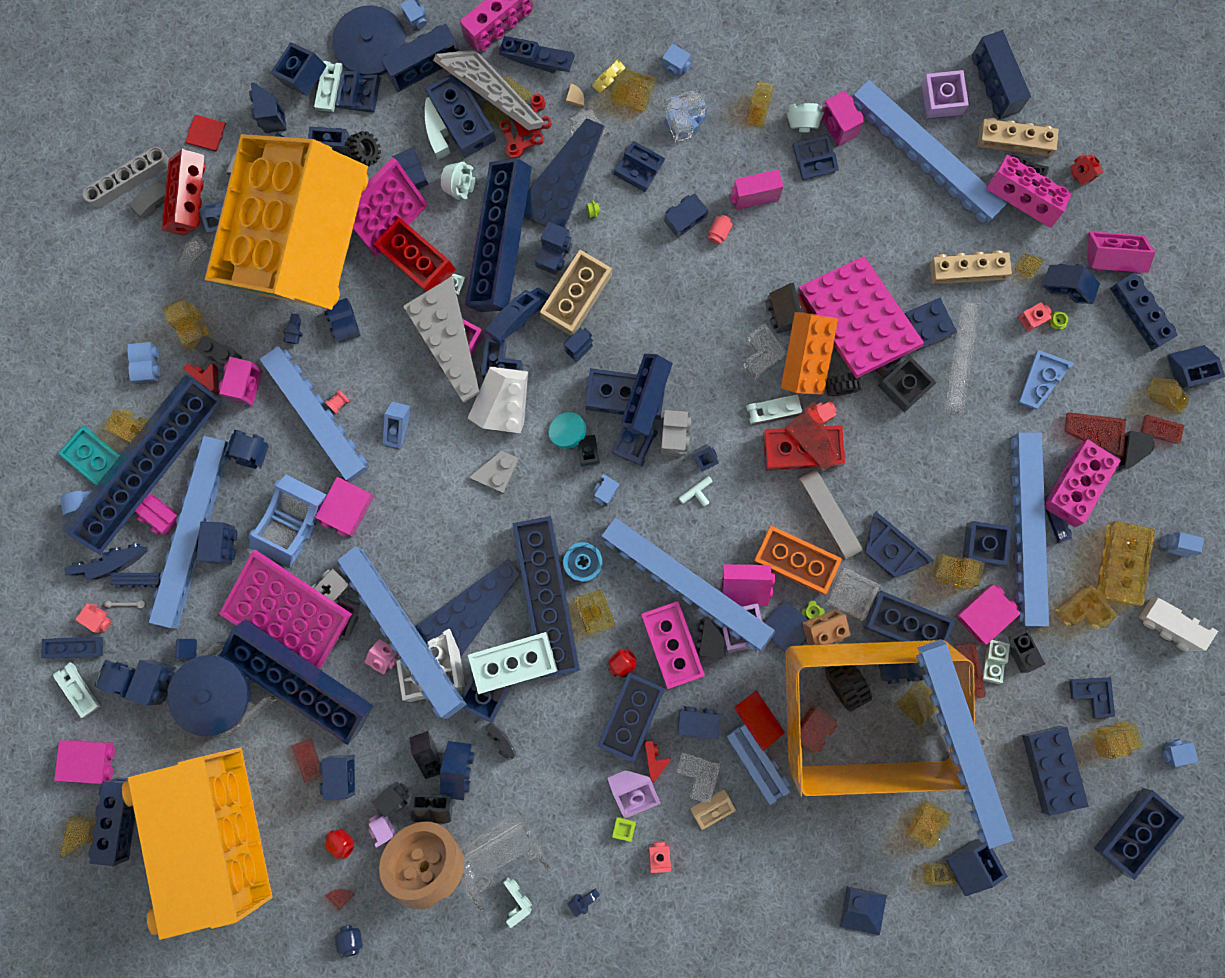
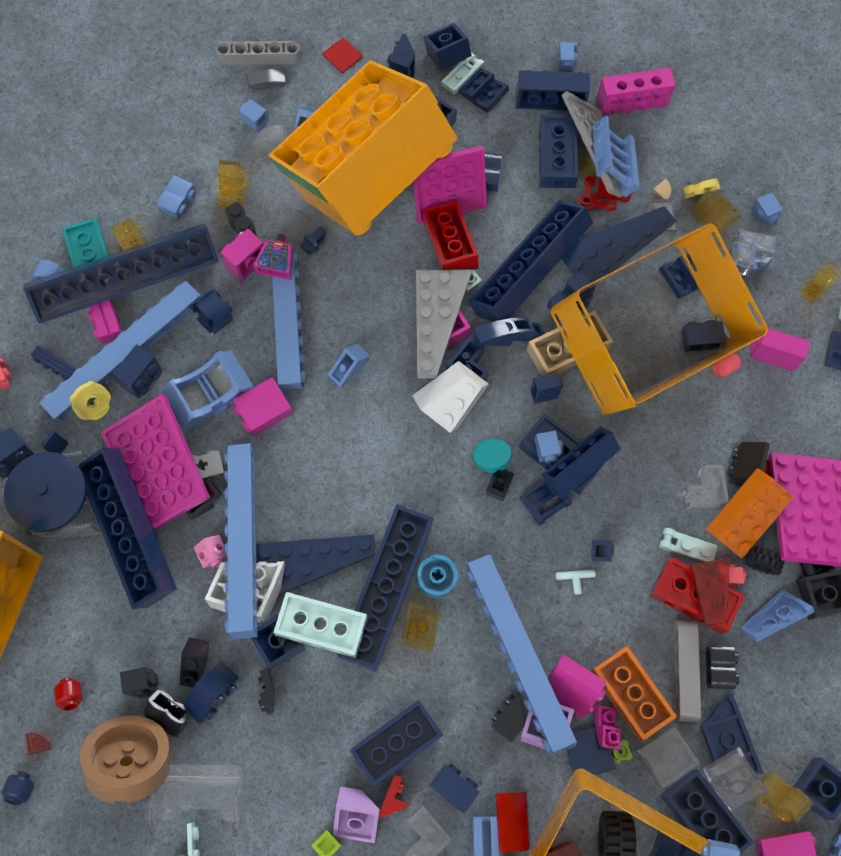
camera: 25 degrees right, 10 degrees down
(111, 562) = (45, 337): dark blue slope -> none
(140, 604) = (43, 386): light grey hinge -> none
(162, 242) = (253, 115): none -> medium blue brick
(182, 592) = (83, 394): none -> light yellow plate
(183, 192) = (295, 86): red brick -> none
(208, 378) = (219, 237): red slope -> none
(271, 368) = (275, 258): none -> torso
(307, 759) = (90, 603): clear red plate -> none
(337, 401) = (312, 317): coral bush -> none
(337, 777) = (105, 633): dark blue brick -> none
(342, 321) = (358, 256): dark blue brick -> none
(365, 37) = (515, 51): dark blue dish -> none
(369, 144) = (468, 132): black tyre -> none
(381, 829) = (112, 704): lavender brick -> none
(436, 130) = (529, 153): light aqua slope -> none
(458, 180) = (524, 200): light aqua cone -> none
(497, 471) = (409, 454): light grey wing -> none
(523, 83) = (624, 151): none -> medium blue fence
(536, 56) = (648, 141): dark blue slope -> none
(592, 209) = (624, 287): lime plate -> none
(605, 491) = (494, 527): medium blue brick -> none
(611, 397) = (548, 446): none -> medium blue brick
(622, 663) = (417, 688): red head -> none
(674, 432) = (584, 514): light grey brick -> none
(683, 171) = (722, 291): none -> light orange piece
(685, 650) = (486, 694): dark pink brick -> none
(793, 603) = (606, 730): none -> dark pink slope
(826, 628) = (625, 774): medium nougat brick -> none
(855, 495) = (721, 668): none -> black brick
(876, 425) = (775, 615): none -> medium blue wing
(914, 580) = (735, 780): none -> clear brick

